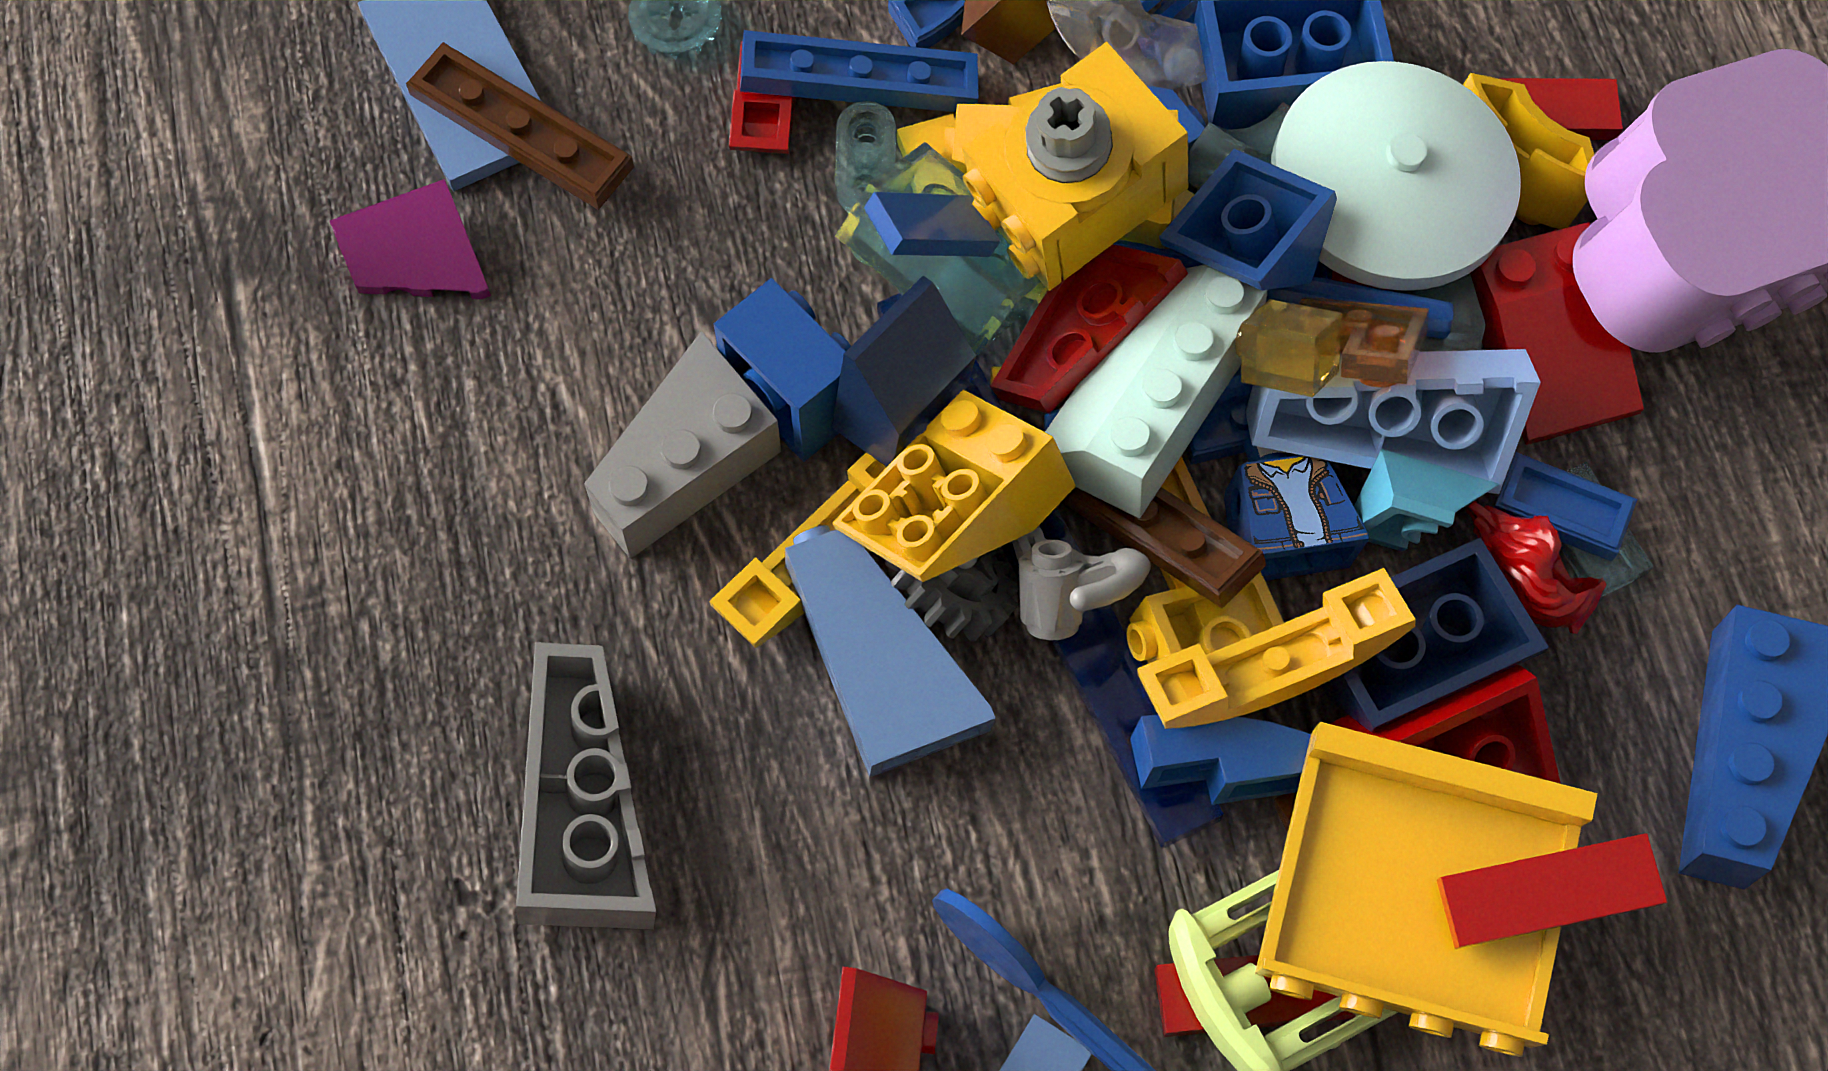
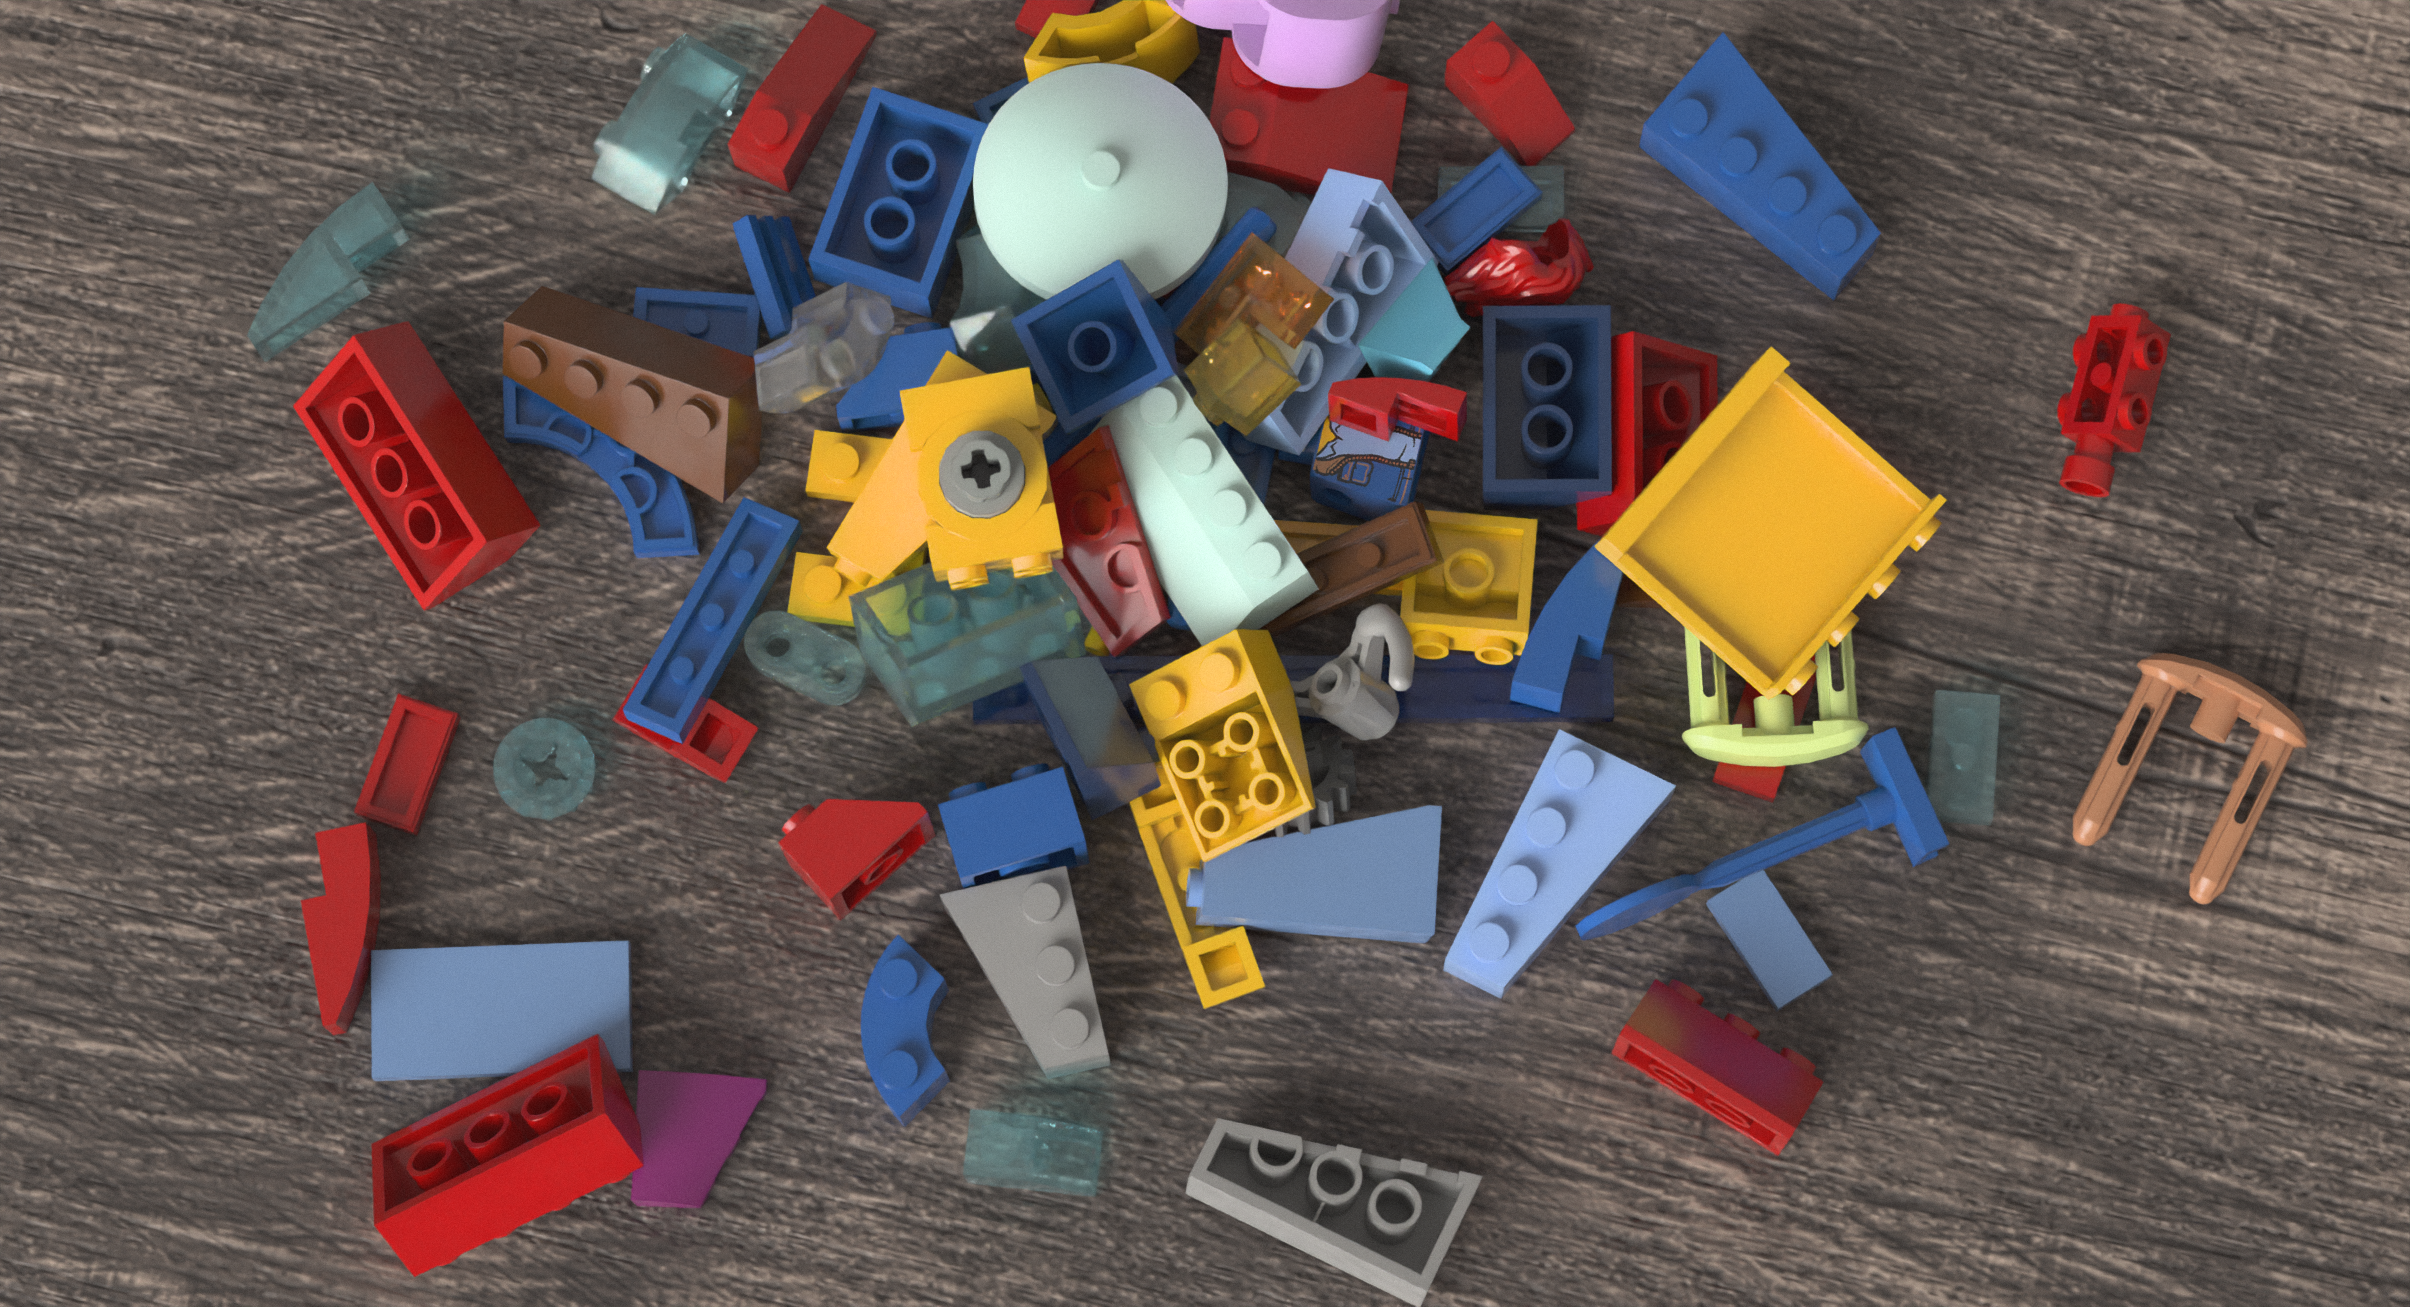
camera: 60 degrees left, 10 degrees up
(323, 112) = (504, 1156): none -> red slope
(511, 518) = (1032, 1153): none -> clear light blue slope
(520, 125) = (605, 973): reddish brown tile -> none
(572, 365) = (898, 1030): none -> blue brick
(703, 245) = (853, 846): none -> red slope
(931, 224) = (973, 634): blue tile -> none
(999, 845) = (1560, 846): none -> light blue wedge
(1281, 661) = (1517, 538): yellow slope -> none
(1340, 491) = (1379, 402): none -> red slope
(1551, 891) = (1825, 426): red tile -> none
(1688, 488) = (1508, 95): none -> red slope

